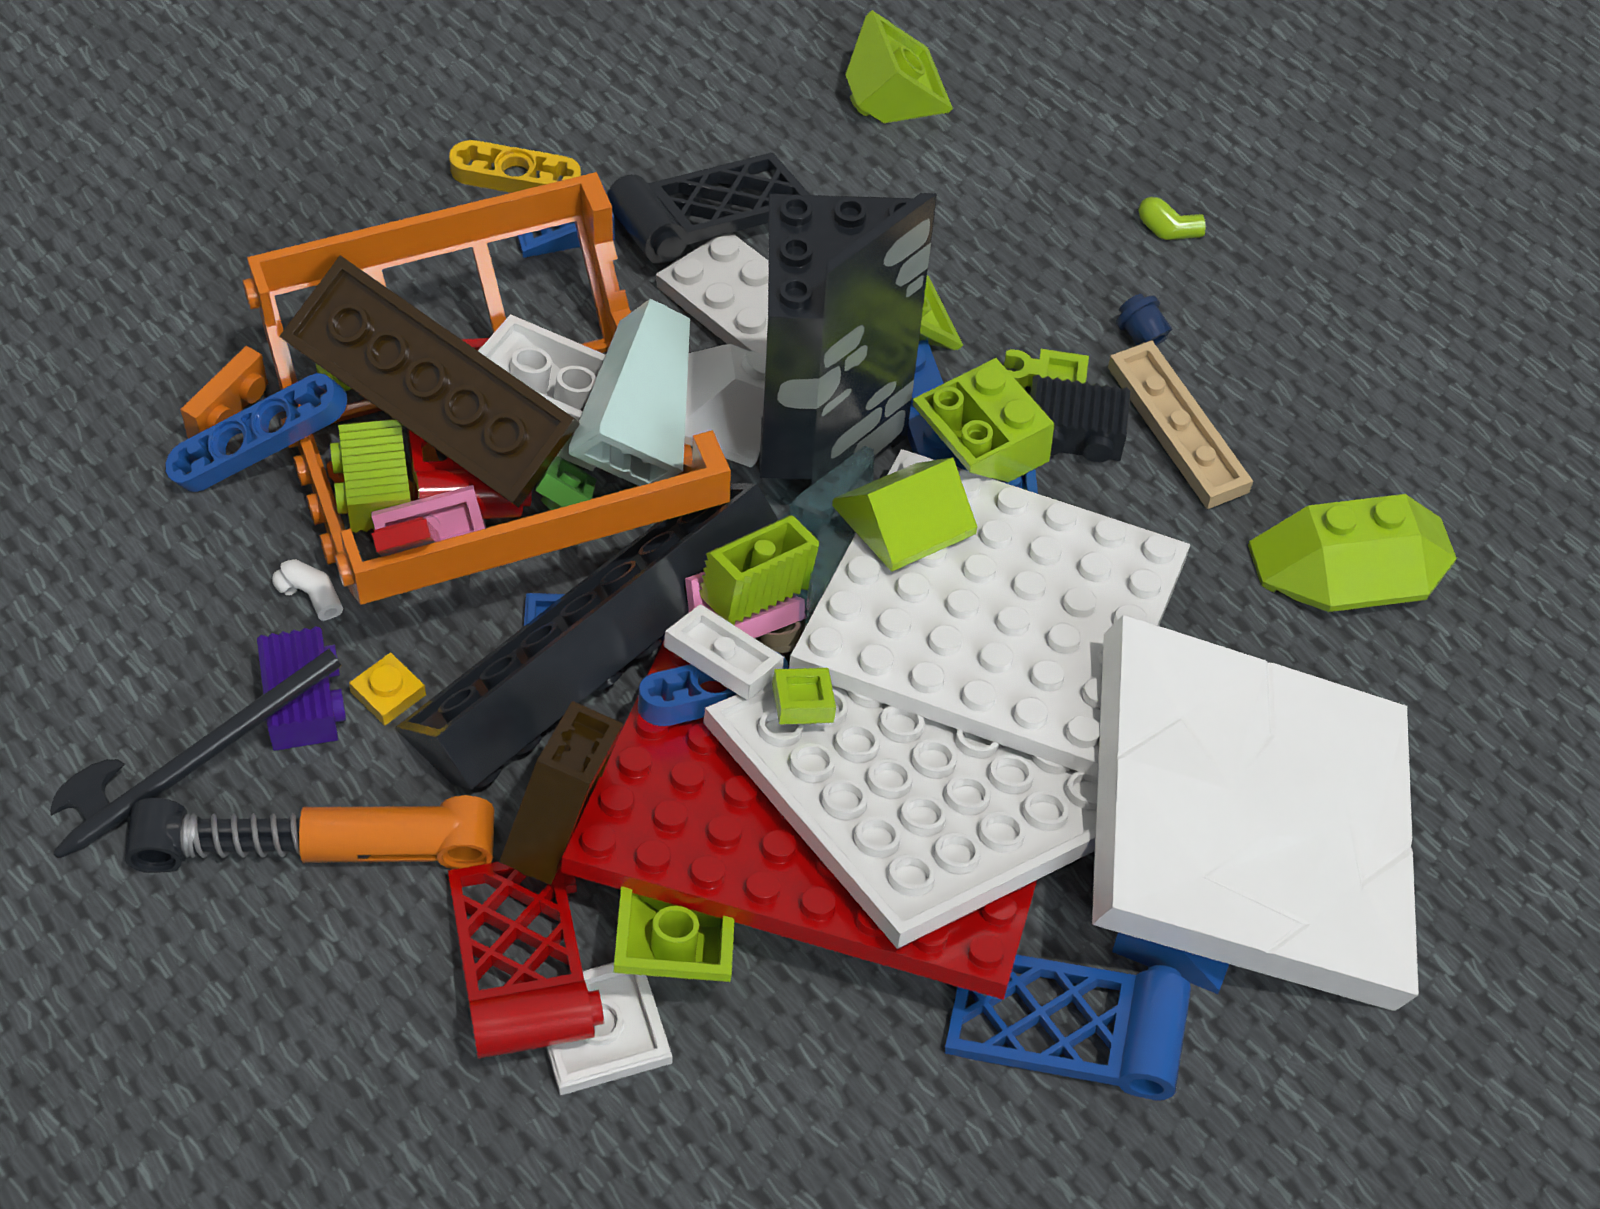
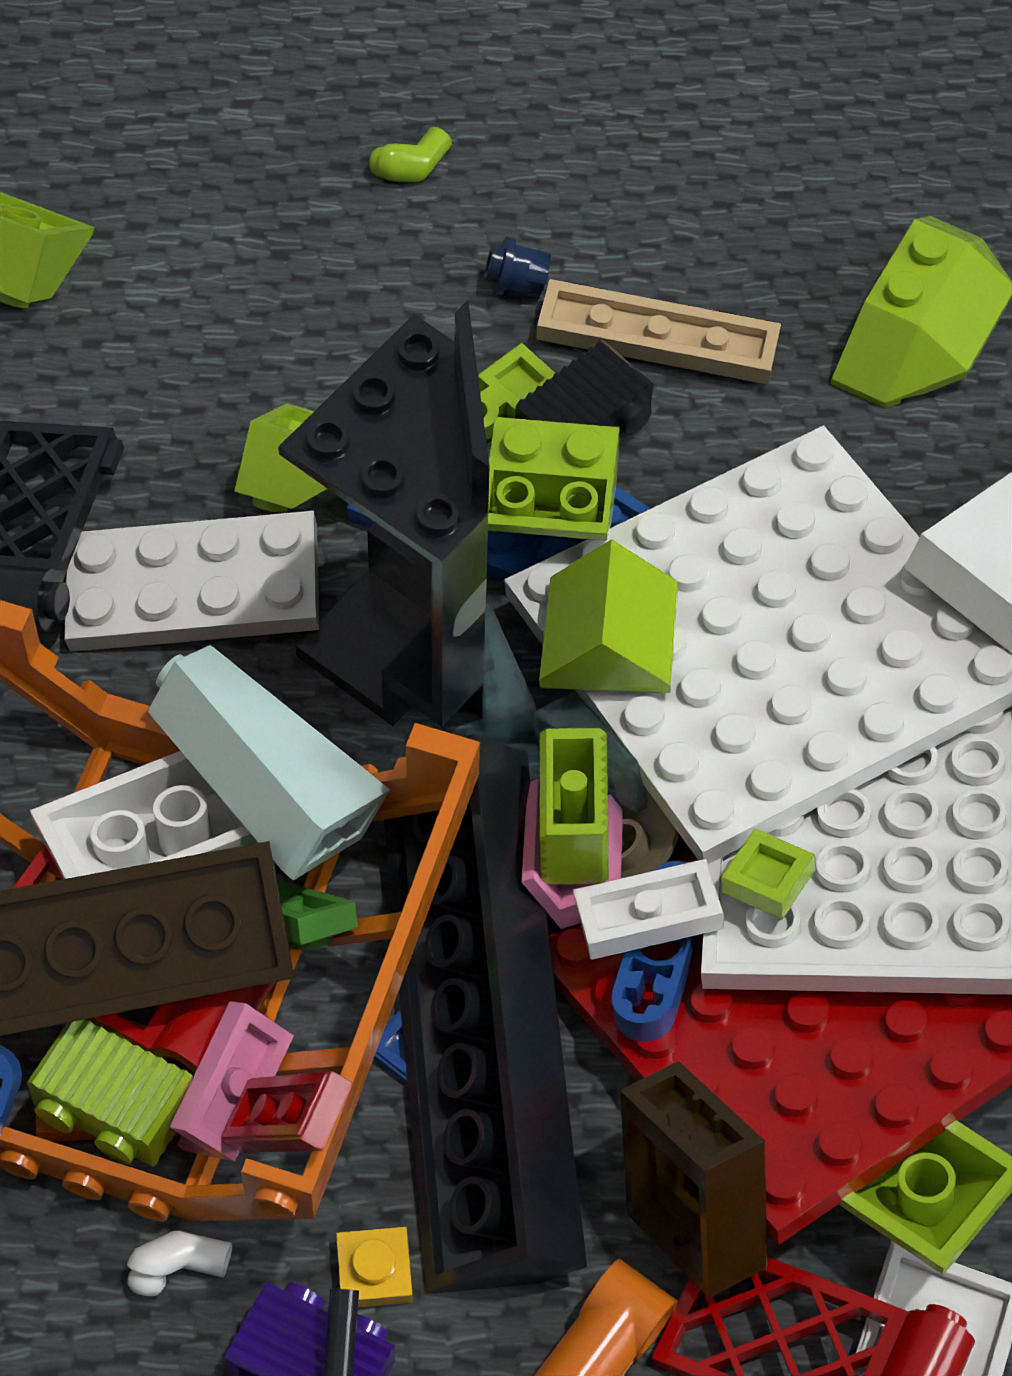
camera: 50 degrees left, 5 degrees up
(728, 398) = (318, 680): white slope -> none

